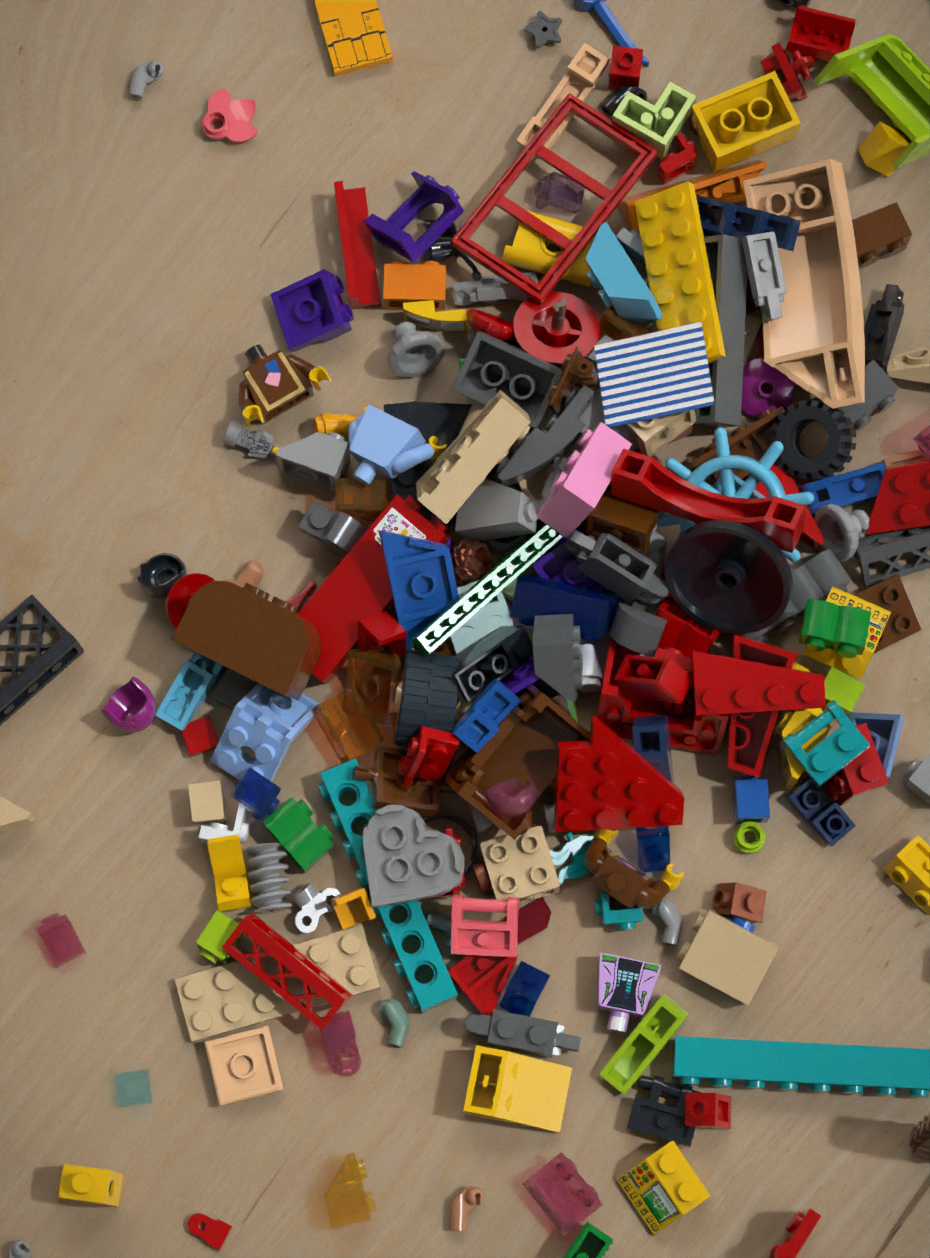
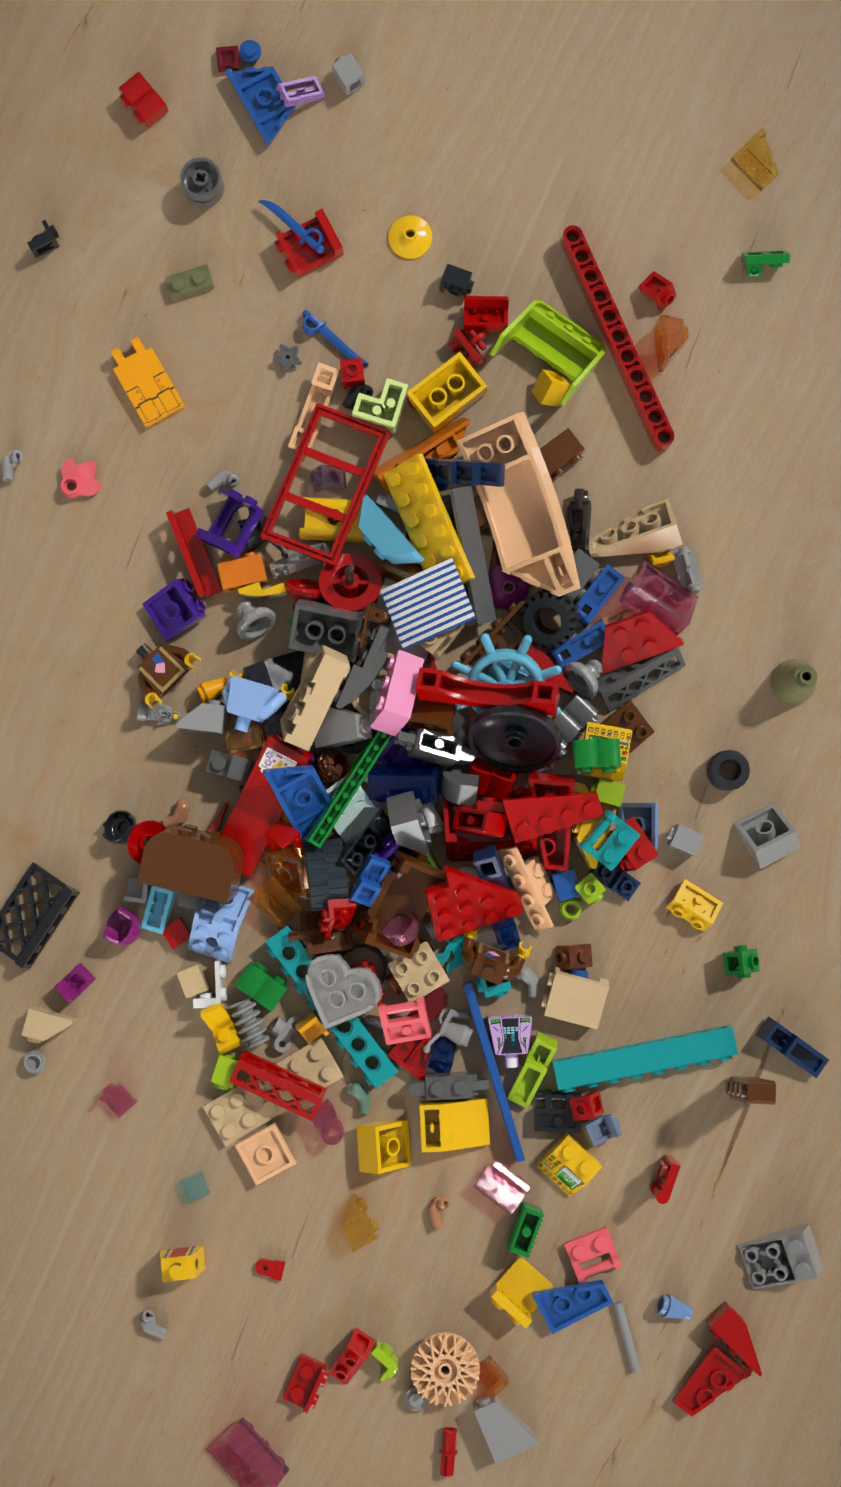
camera: 15 degrees left, 10 degrees up
(46, 767) = (75, 983): none -> magenta bracket
(164, 665) = (137, 891): none -> light grey panel
(257, 793) = (225, 967): clear blue bracket -> none
(411, 1095) = (383, 1146): none -> yellow slope
(418, 161) = (223, 478): none -> light grey arm
(551, 963) = (455, 1032): none -> light grey piece
(589, 1030) = (493, 1071): none -> blue tile
(676, 164) = (405, 436): red bracket -> none
(704, 786) = (531, 884): none -> light nougat bracket
(721, 1149) = (601, 1129): none -> sand blue bracket
(765, 273) = (488, 507): light grey hinge -> none
(784, 814) = (590, 889): none -> lime bracket
(887, 428) = (599, 593): none -> blue plate

